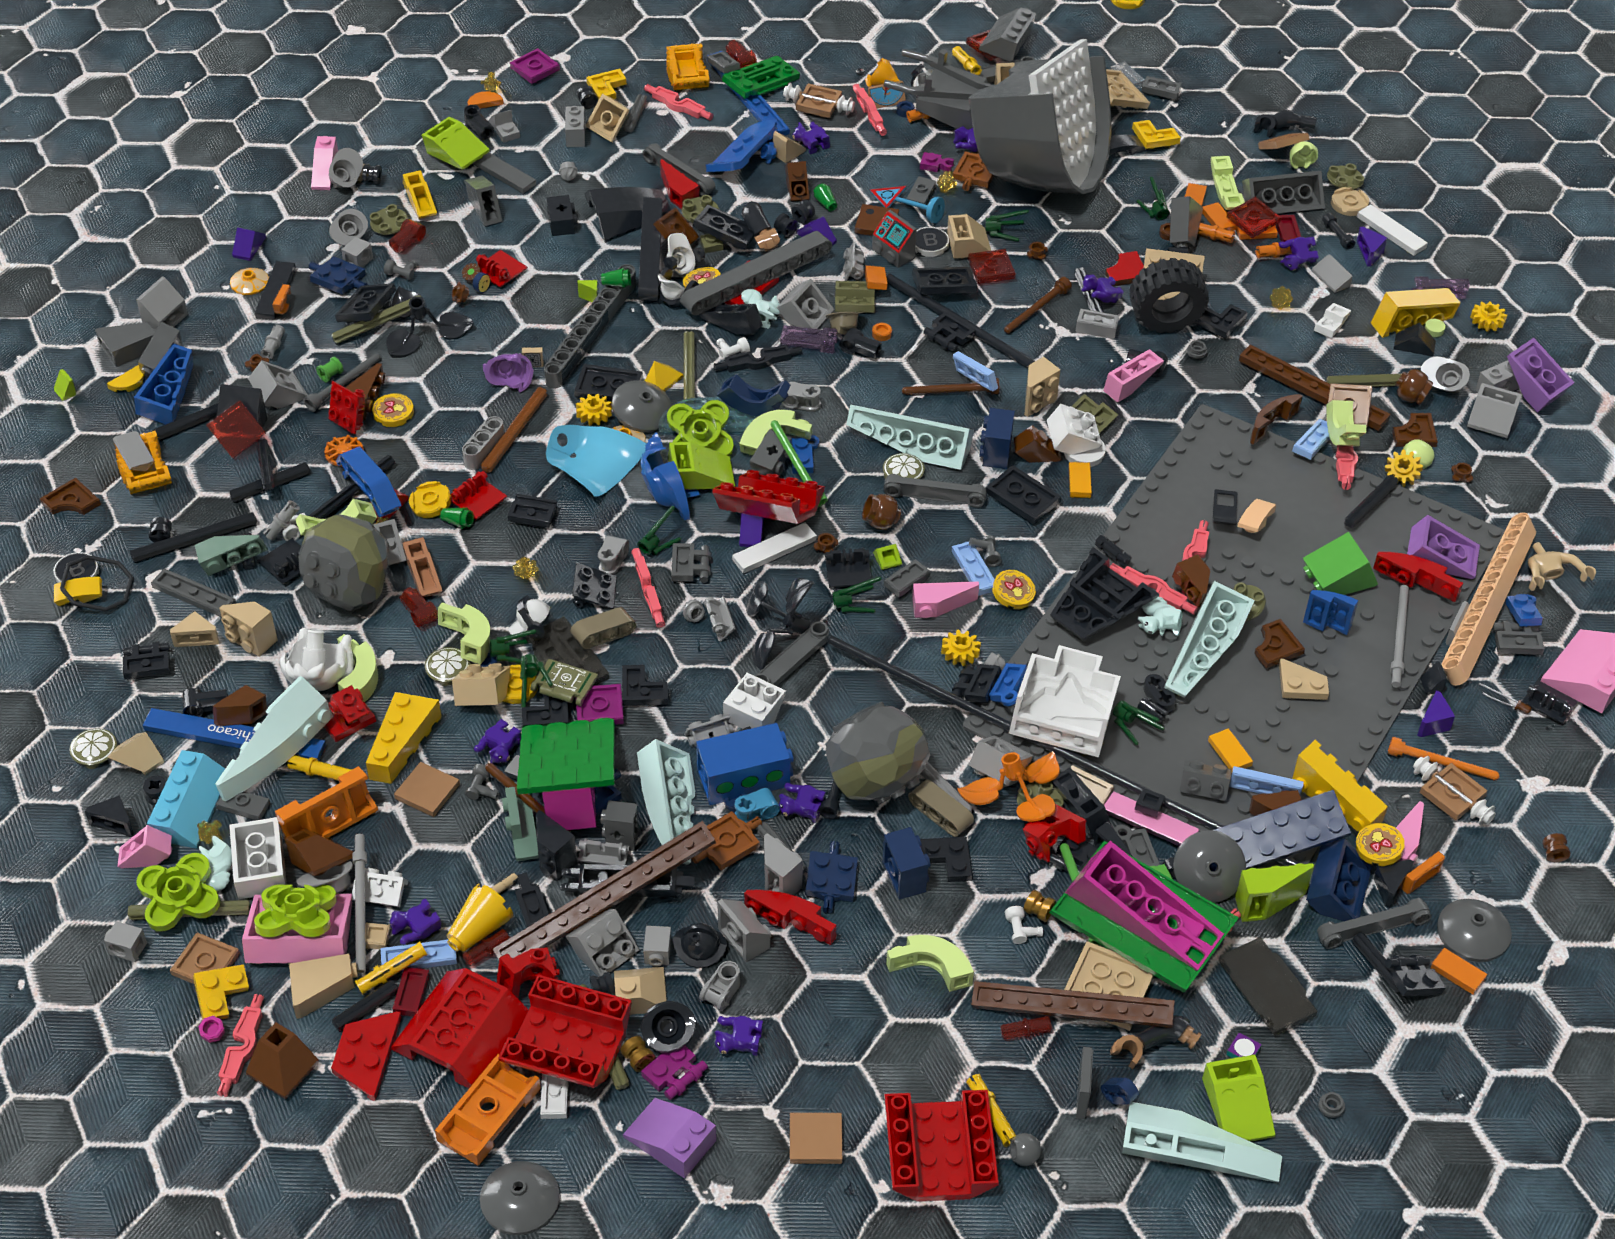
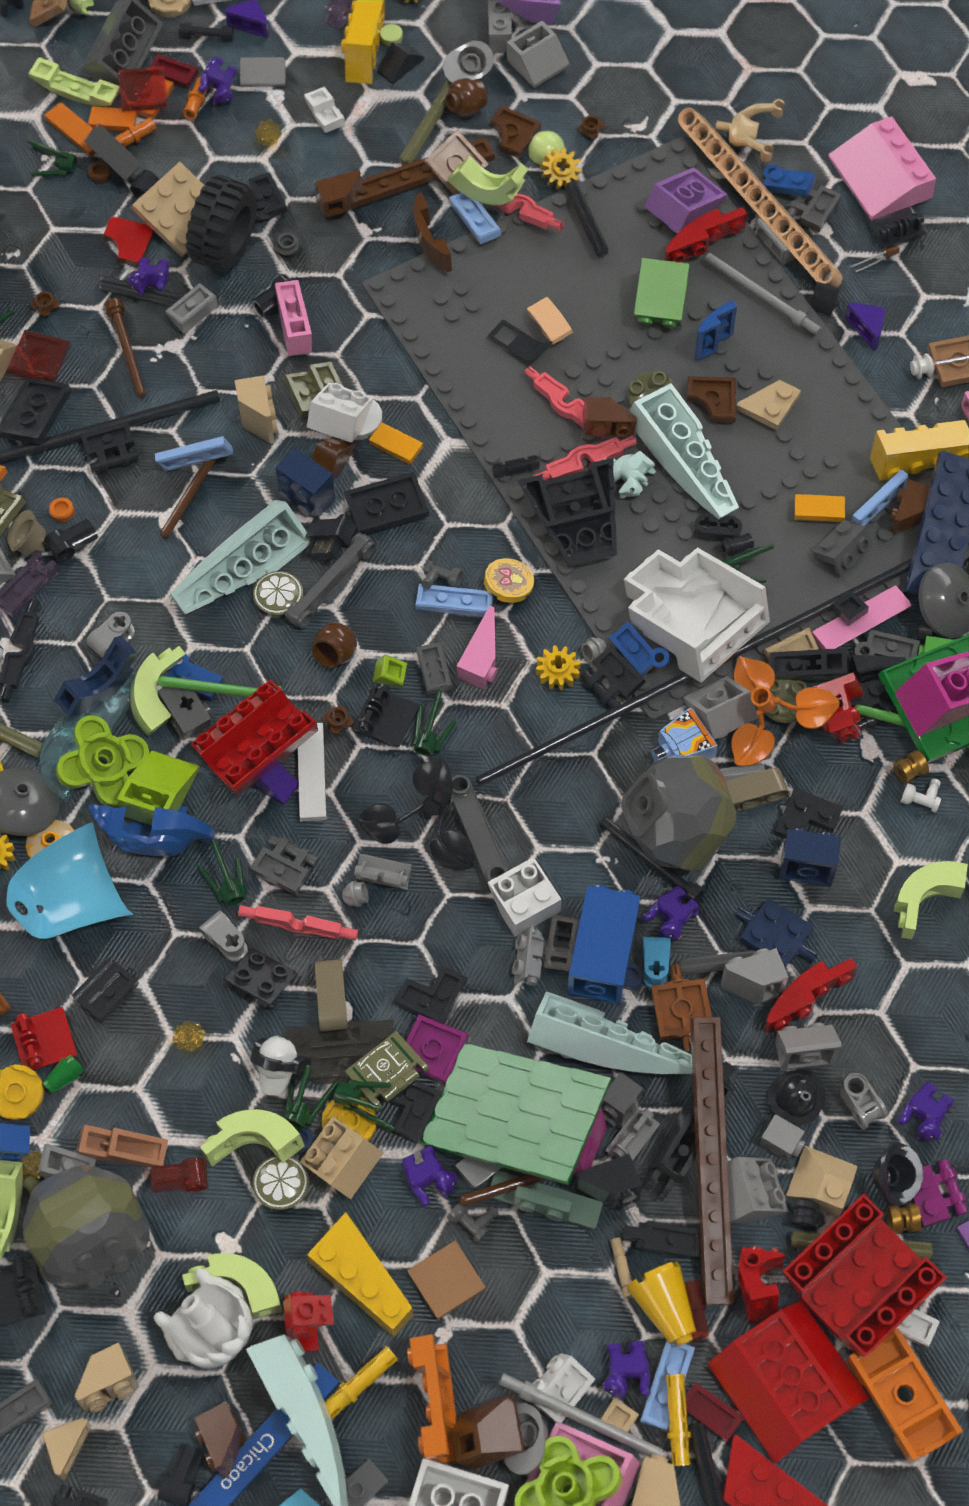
camera: 60 degrees left, 15 degrees up
(953, 749) = (685, 737): none -> torso
(967, 470) = (329, 536): none -> black piece
(1259, 351) = (338, 192): none -> reddish brown slope
(1398, 747) = (885, 373): orange piece -> none

